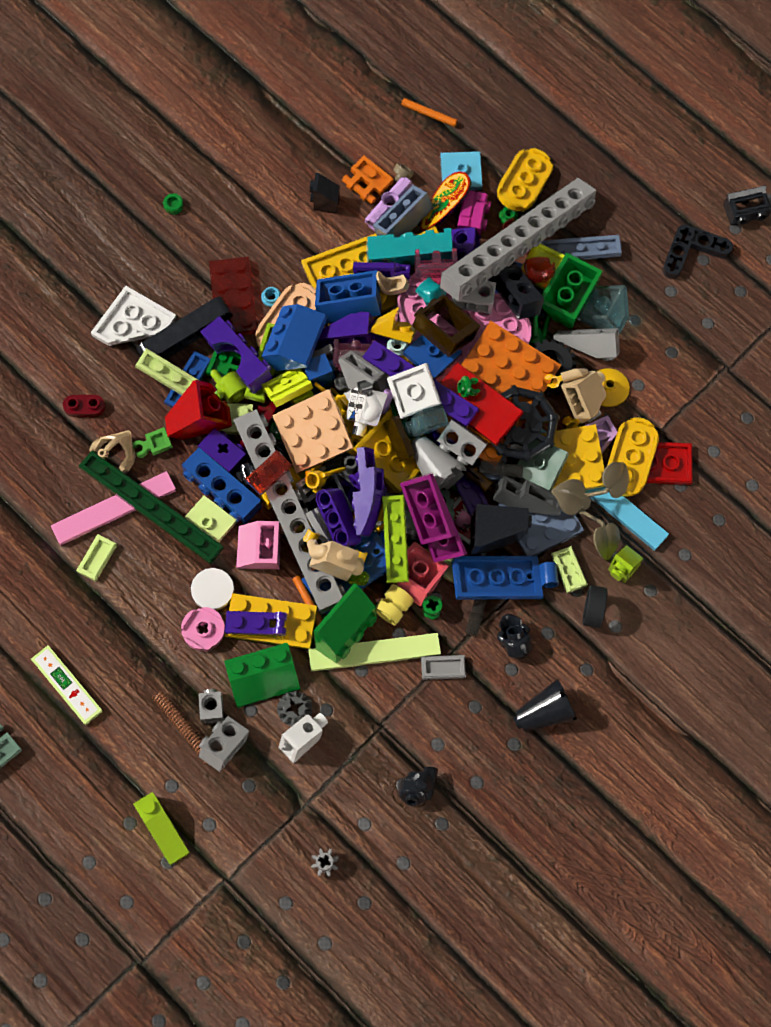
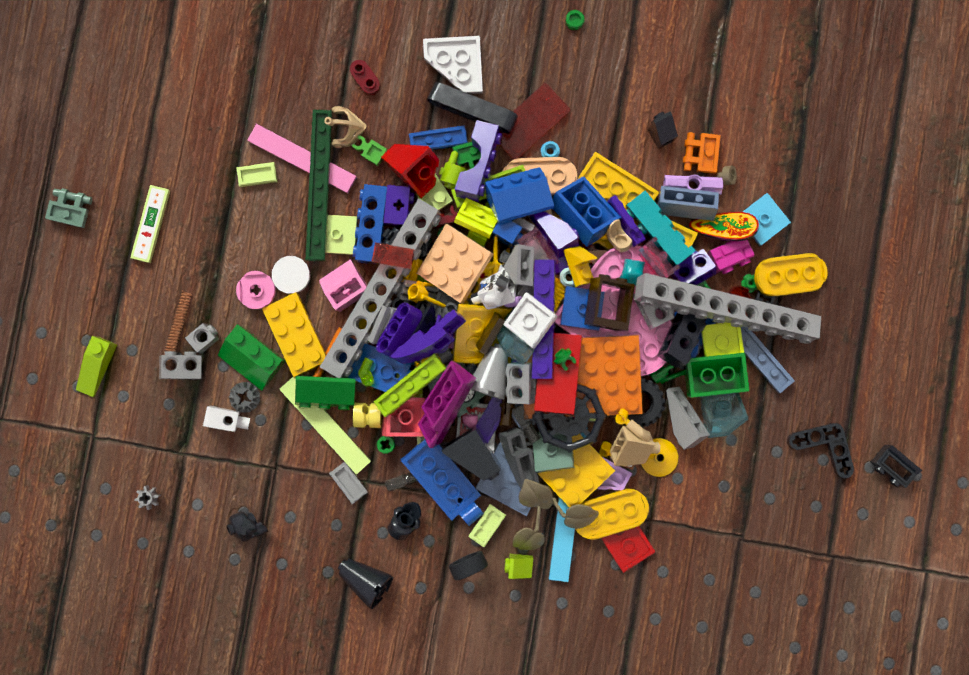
camera: 60 degrees right, 15 degrees up
(164, 372) = (429, 123): yellowish green tile -> none
(255, 623) = (282, 325): dark purple plate -> none
(334, 557) = (359, 352): tan torso -> none
(429, 112) = (798, 158): orange bar -> none
(539, 269) = (714, 341): clear red hair -> none

